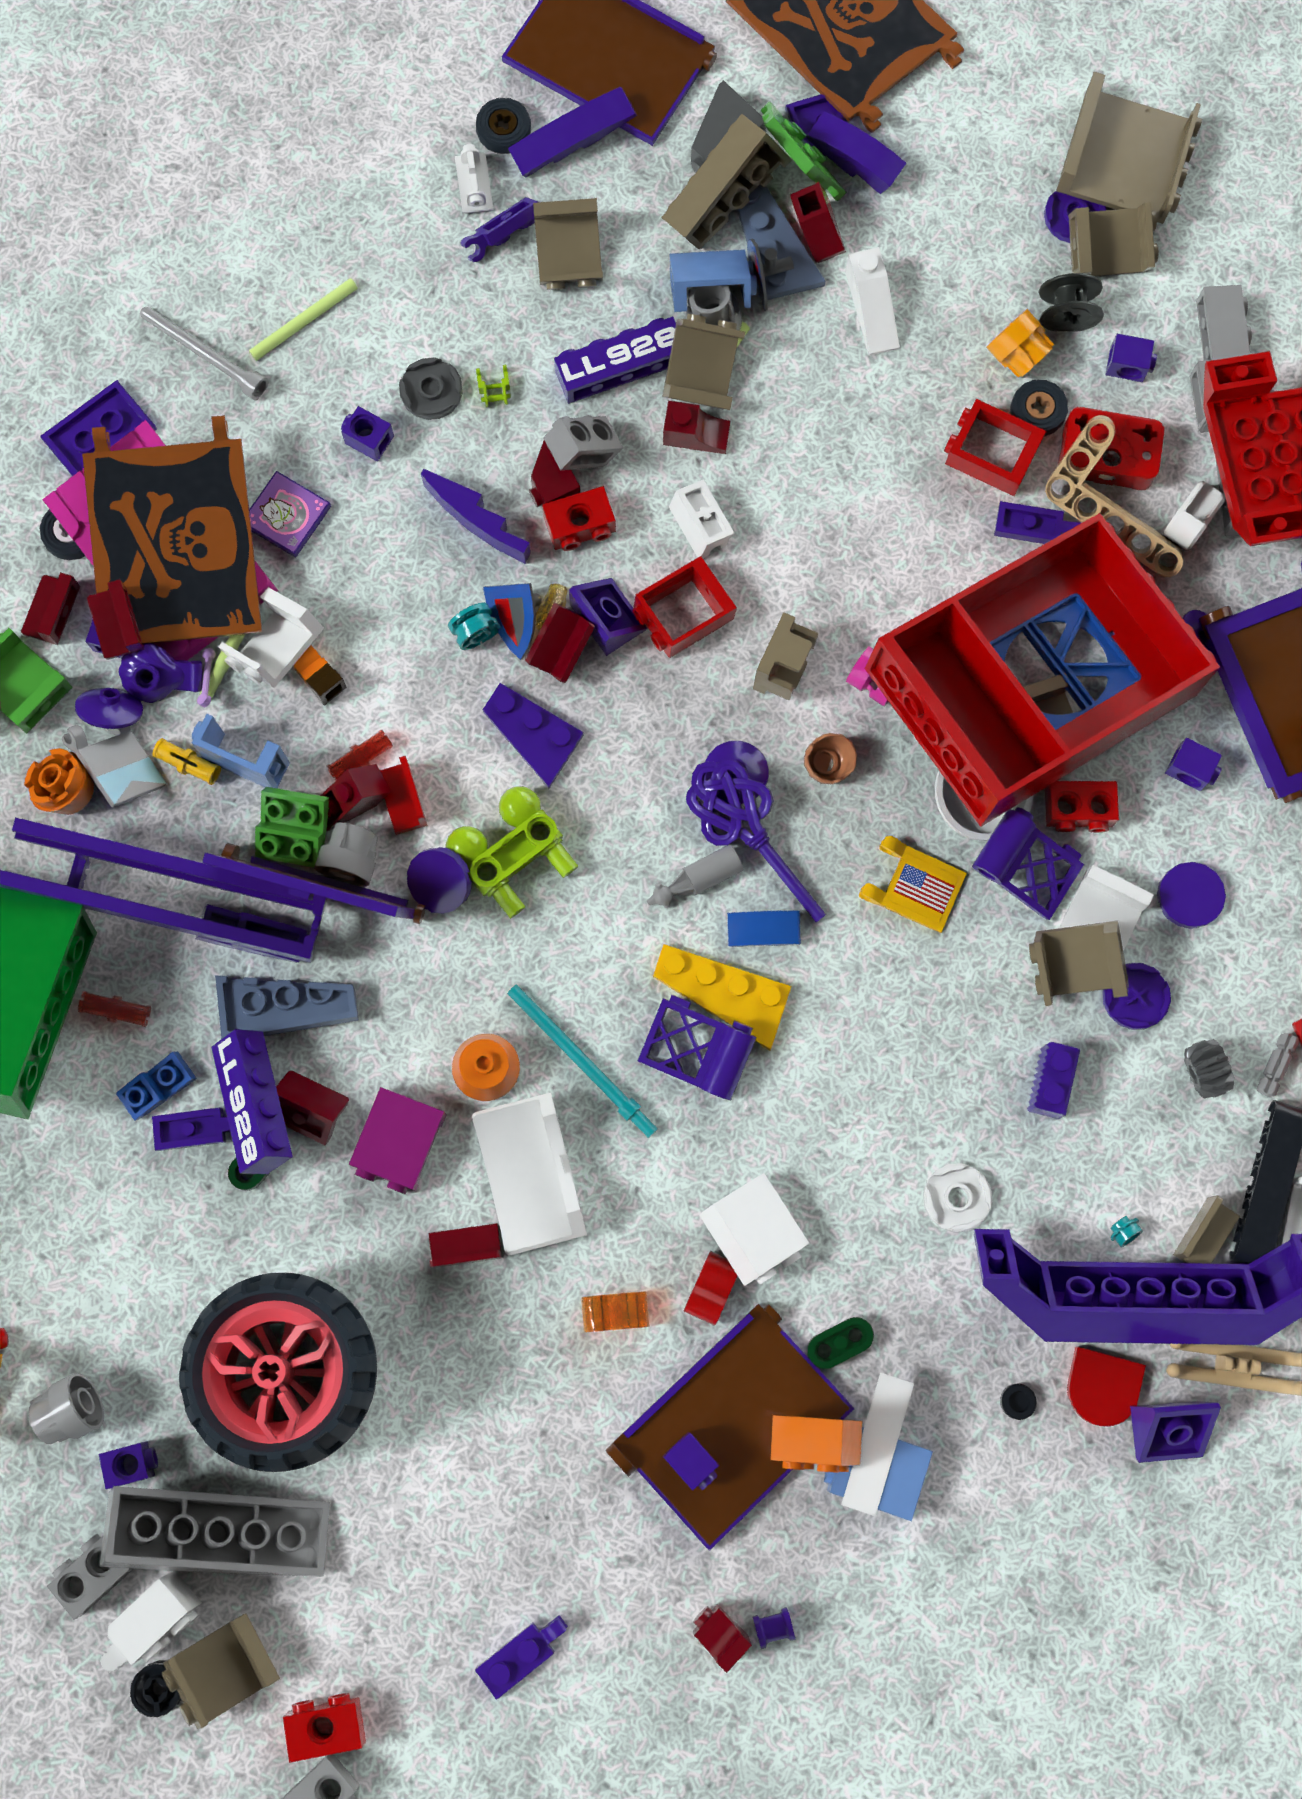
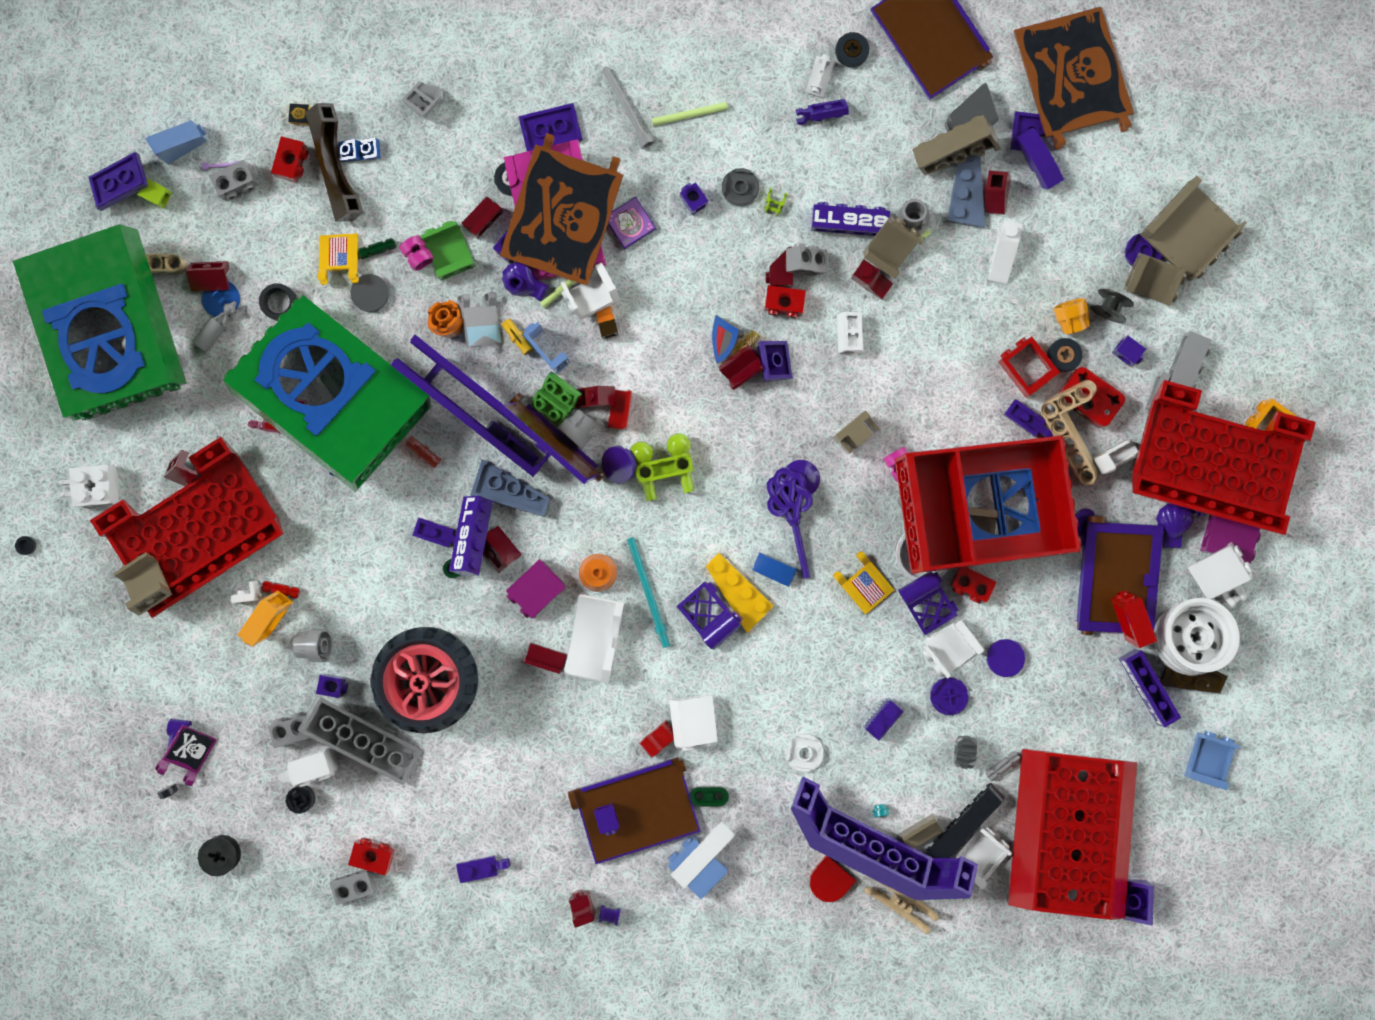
camera: 30 degrees right, 10 degrees up
(108, 708) = (489, 289): dark purple dish -> none
(115, 621) = (512, 246): dark red panel -> none
(156, 1086) = (427, 501): blue slope -> none
(204, 699) = (540, 308): lavender hinge -> none
(219, 1671) = (333, 806): dark tan panel -> none
(361, 754) = (608, 377): clear red pin -> none
(468, 510) = (727, 267): dark purple slope -> none
(473, 626) = (700, 335): teal wheel -> none
(534, 732) = (705, 406): dark purple wing -> none
(568, 243) = (853, 140): dark tan panel -> none
(572, 131) = (888, 73): dark purple slope -> none
(615, 1311) = (604, 727): clear orange axle -> none
(699, 876) = (754, 526): light grey wheel -> none
(710, 269) = (922, 194): medium blue panel -> none
(710, 589) = (835, 371): red window -> none
(770, 267) = (958, 206): dark grey shield -> none
(806, 157) = (1008, 150): bright green wing -> none
(819, 755) = (850, 490): nougat hair -> none
(819, 1441) = (672, 840): orange brick -> none
(1018, 1401) = (783, 867): black tile -> none
(1079, 960) = (927, 665): dark tan panel -> none
(1172, 1430) = (852, 917): dark purple slope -> none
(1194, 764) = (1043, 591): dark purple brick -> none

